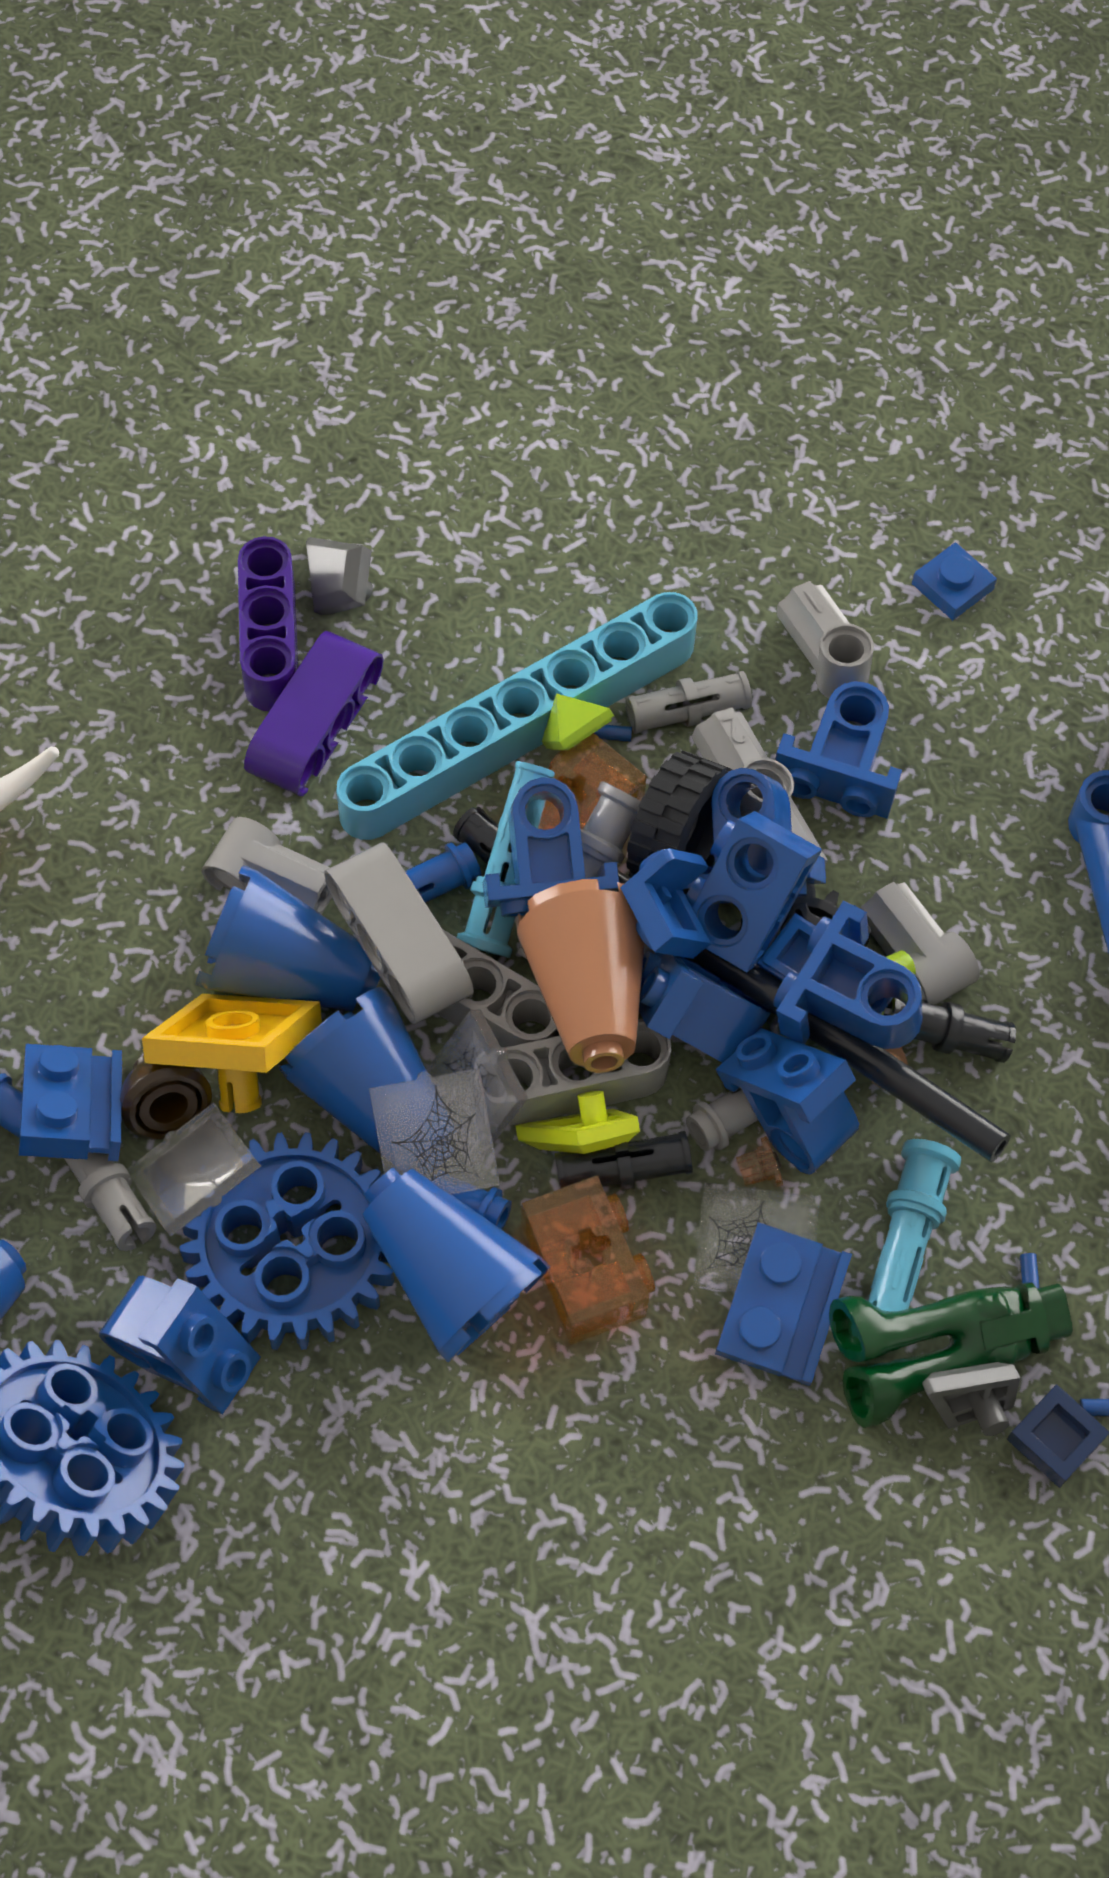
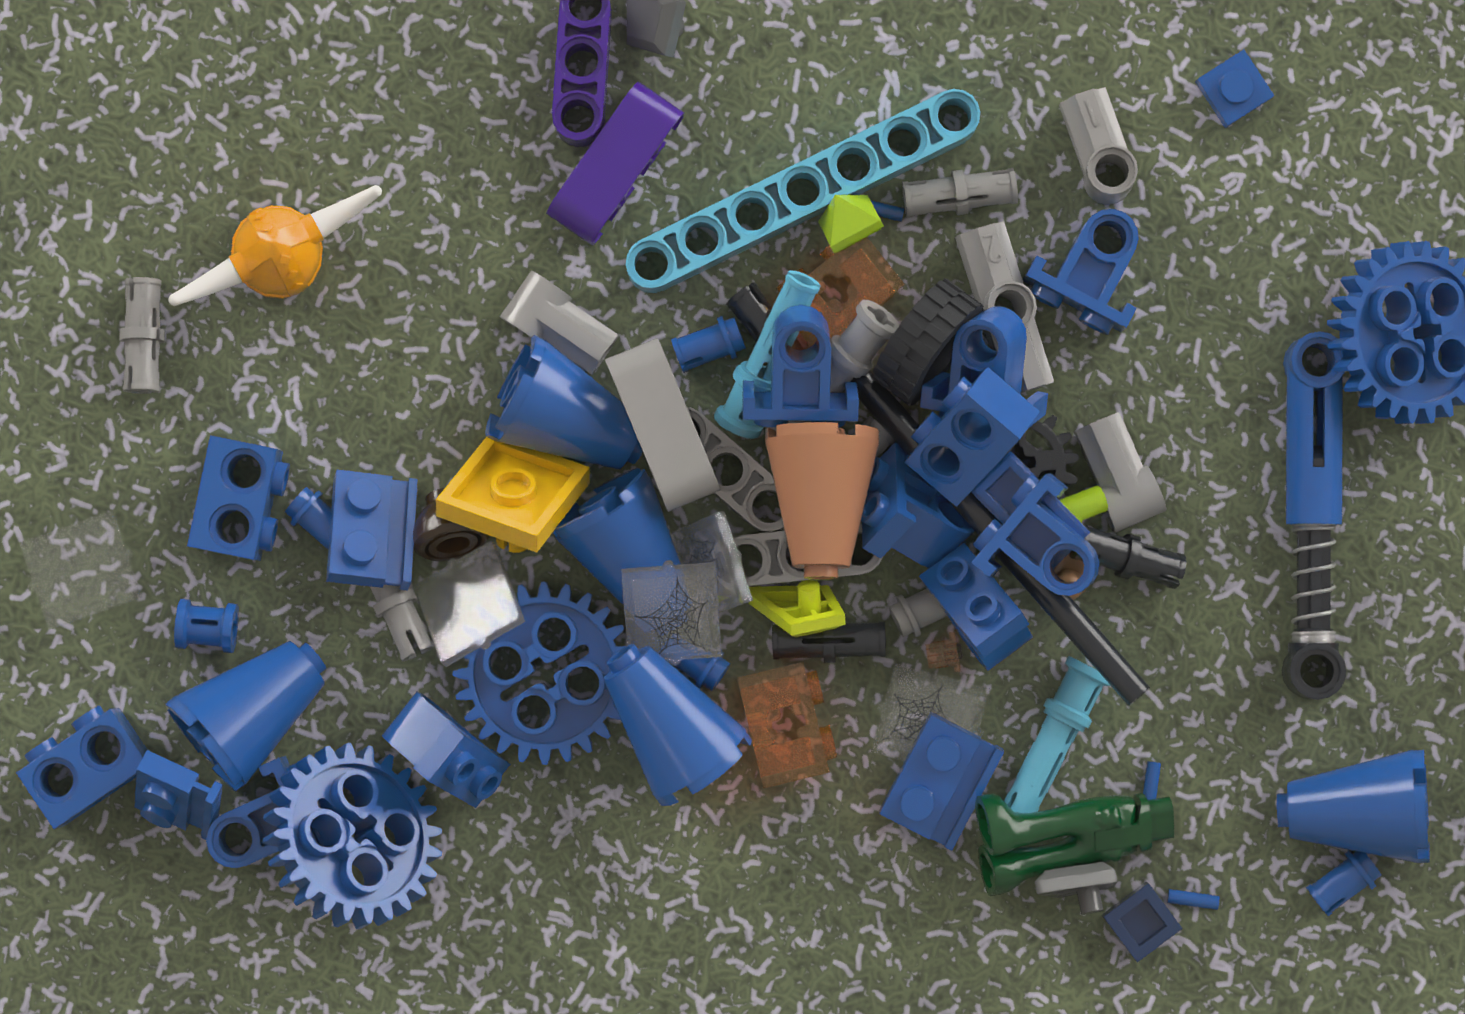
camera: 10 degrees right, 25 degrees up
(661, 907) = (893, 452): blue bracket -> none

